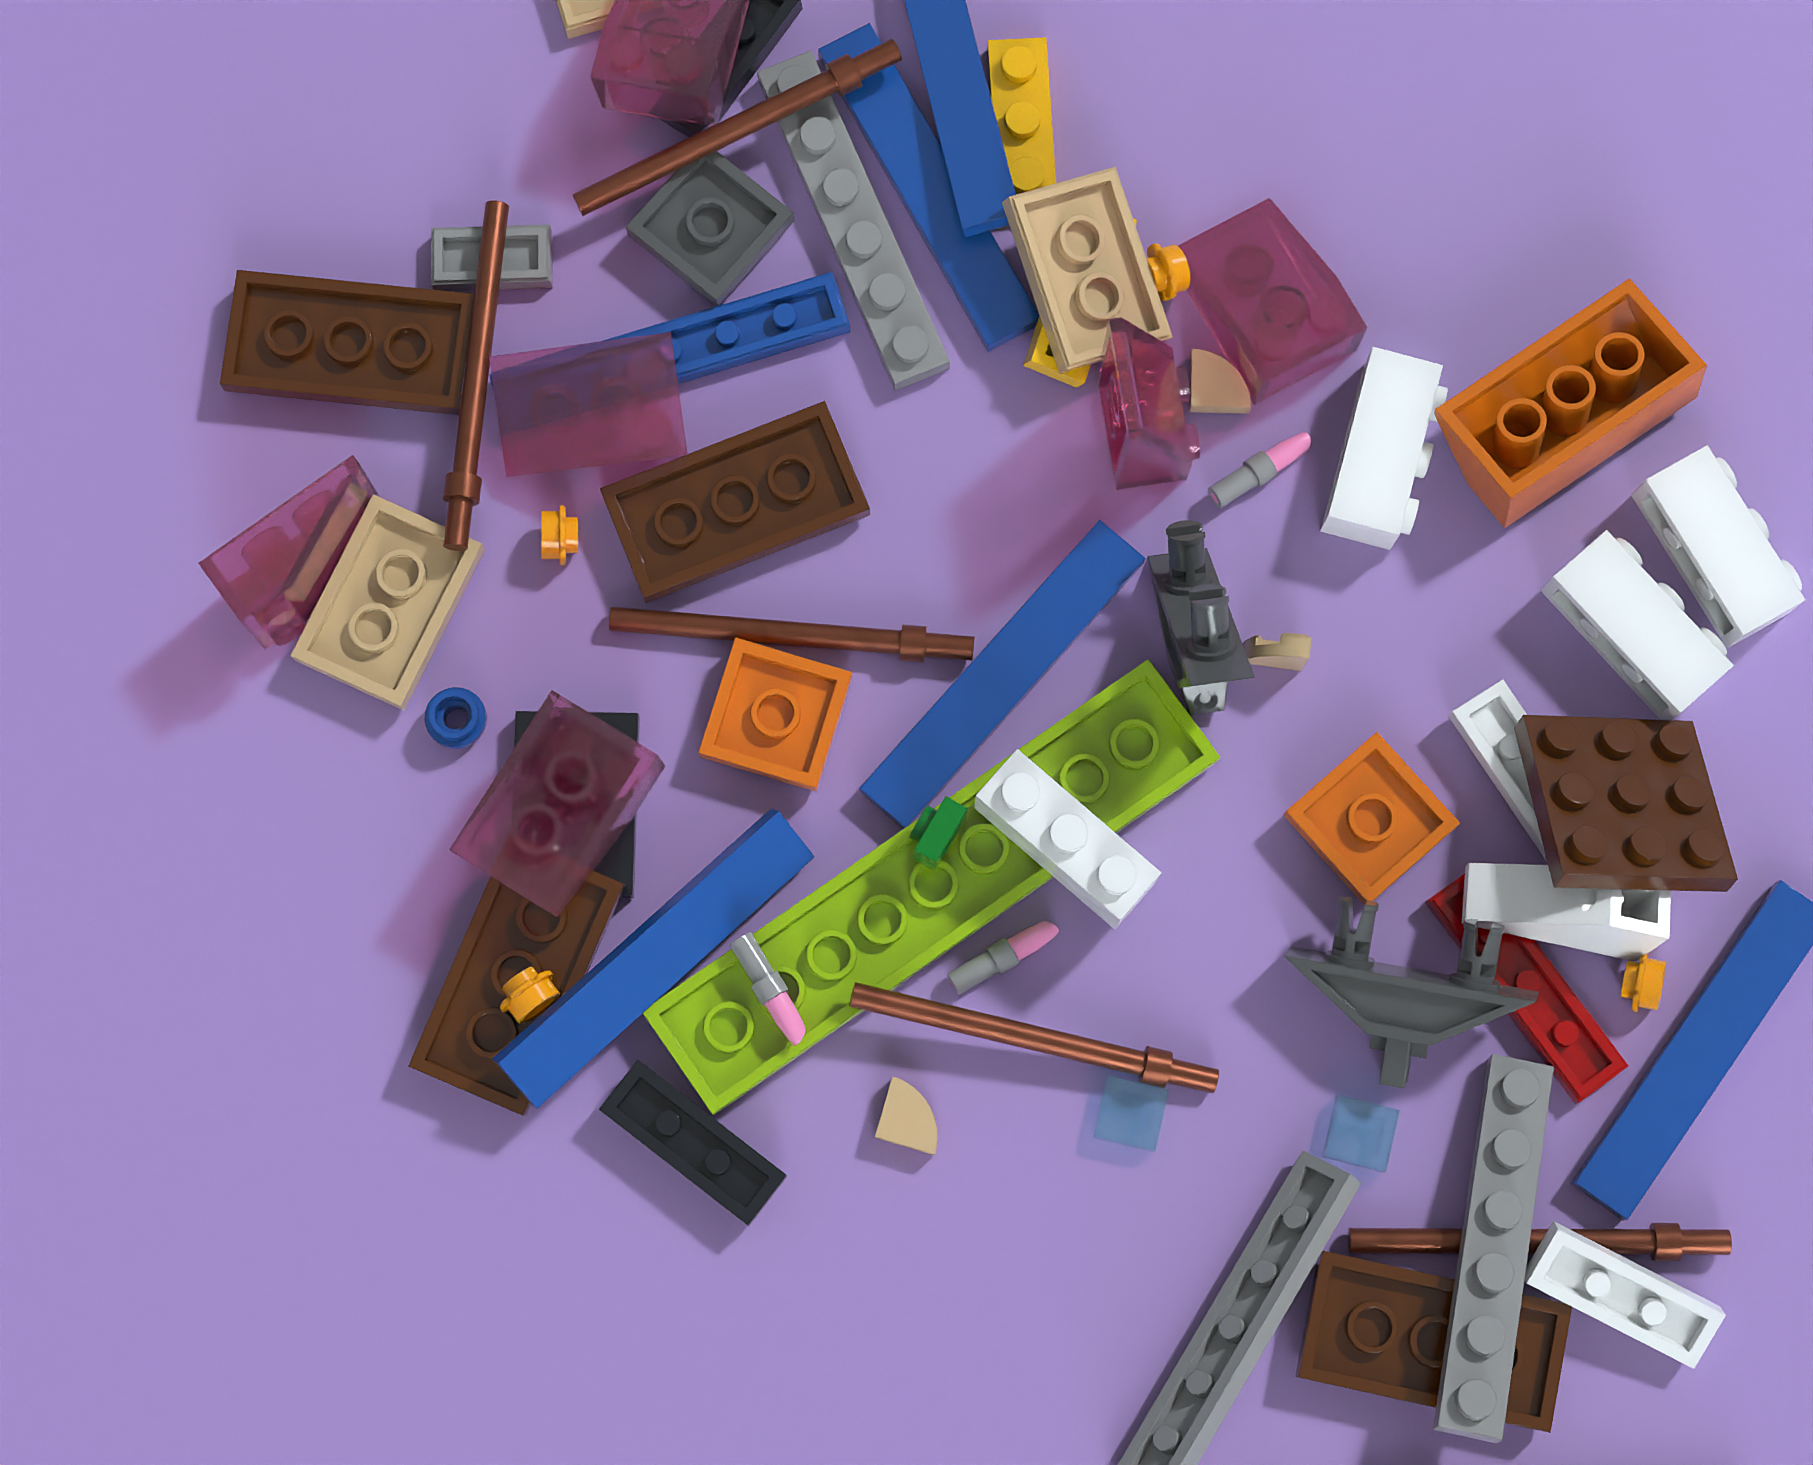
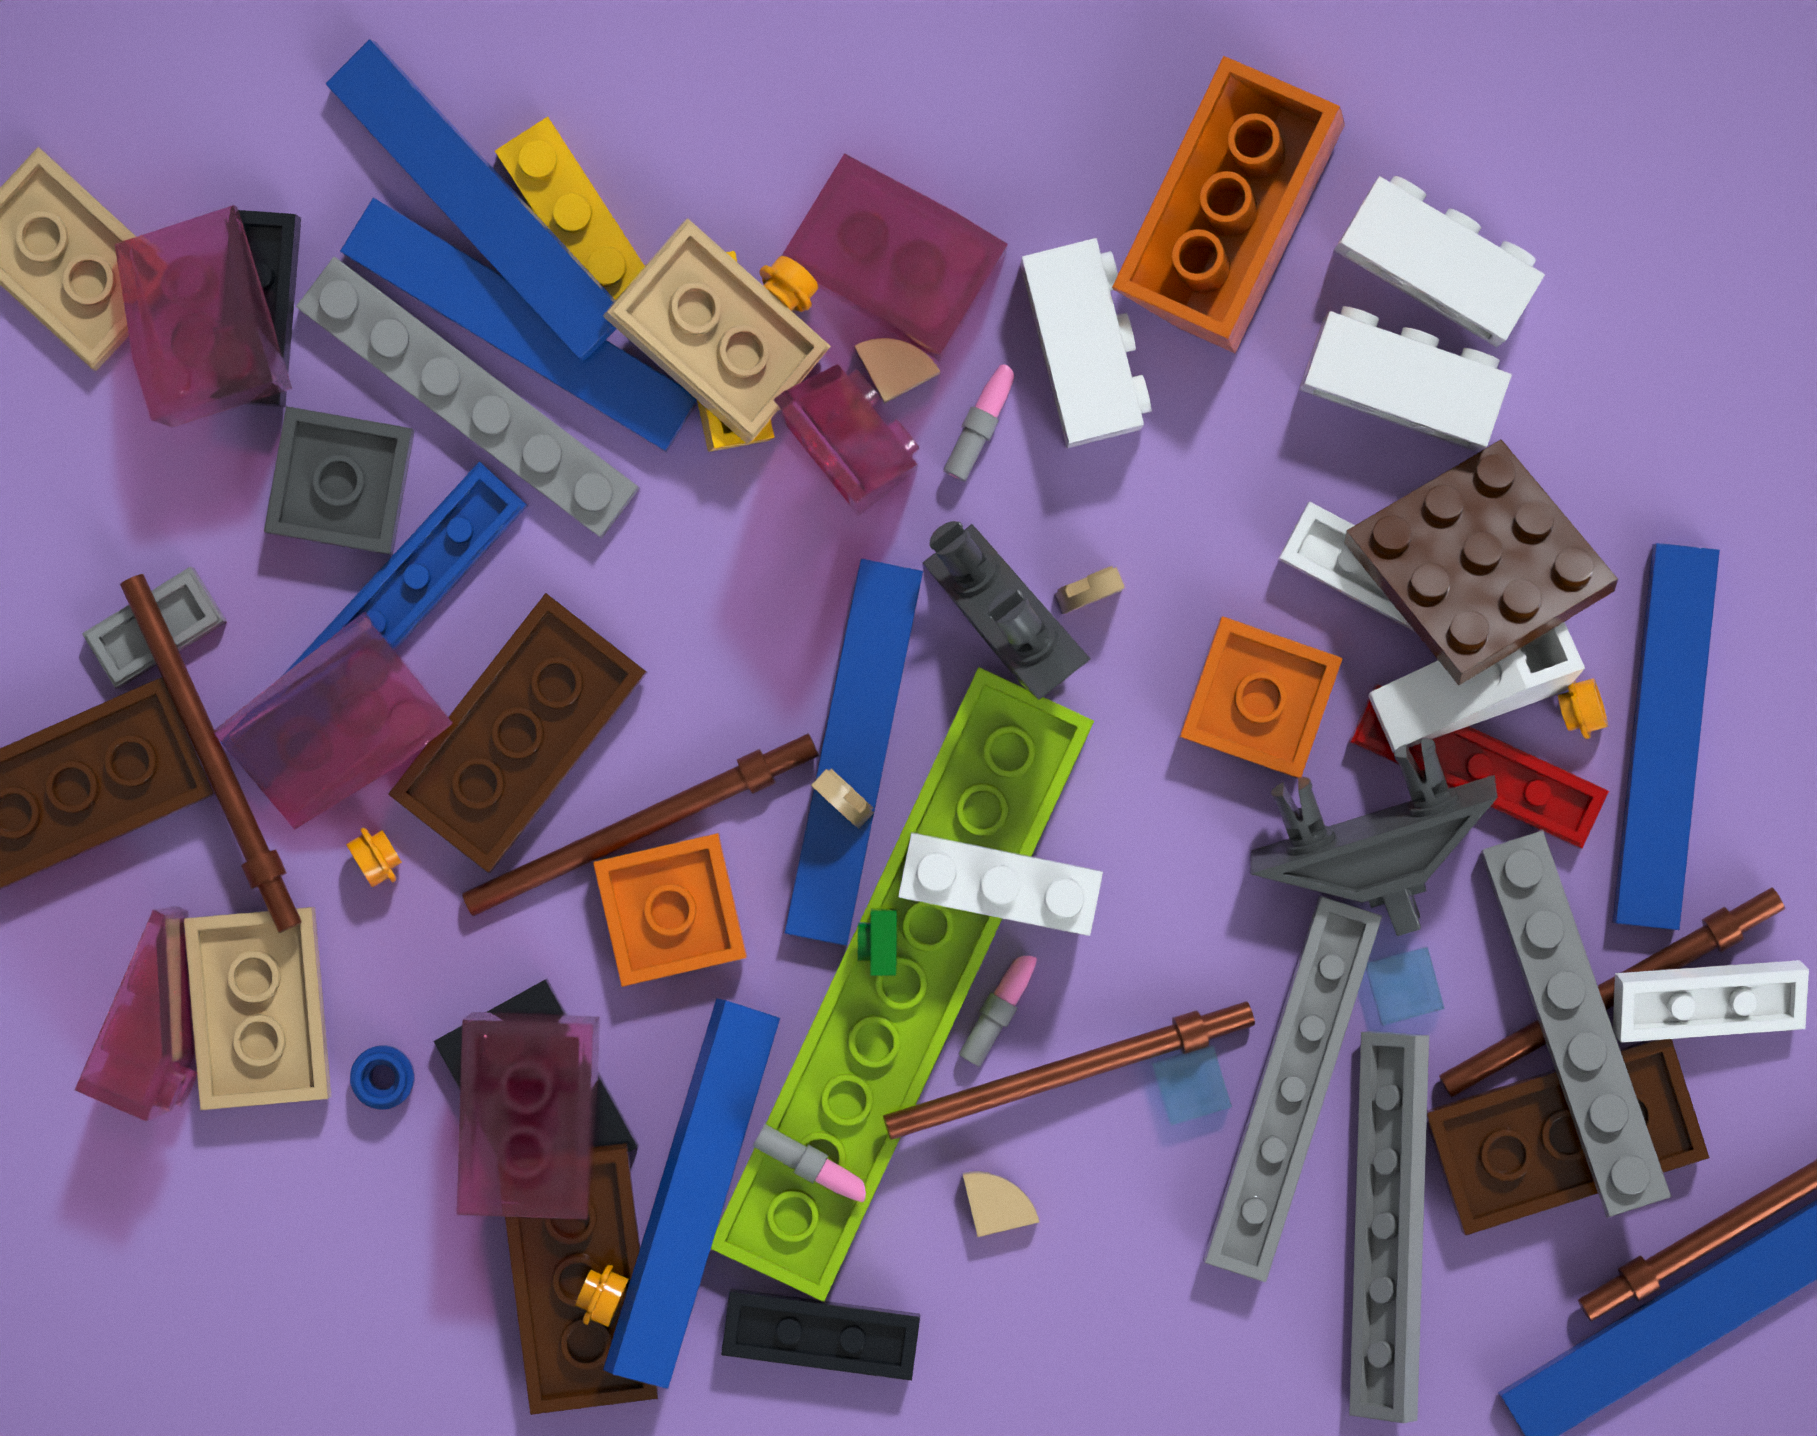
camera: 25 degrees left, 10 degrees up
(841, 76) = (380, 273): copper bar -> none
(970, 689) = (843, 797): none -> tan tile
(1216, 1165) = (1292, 1089): none -> light grey plate

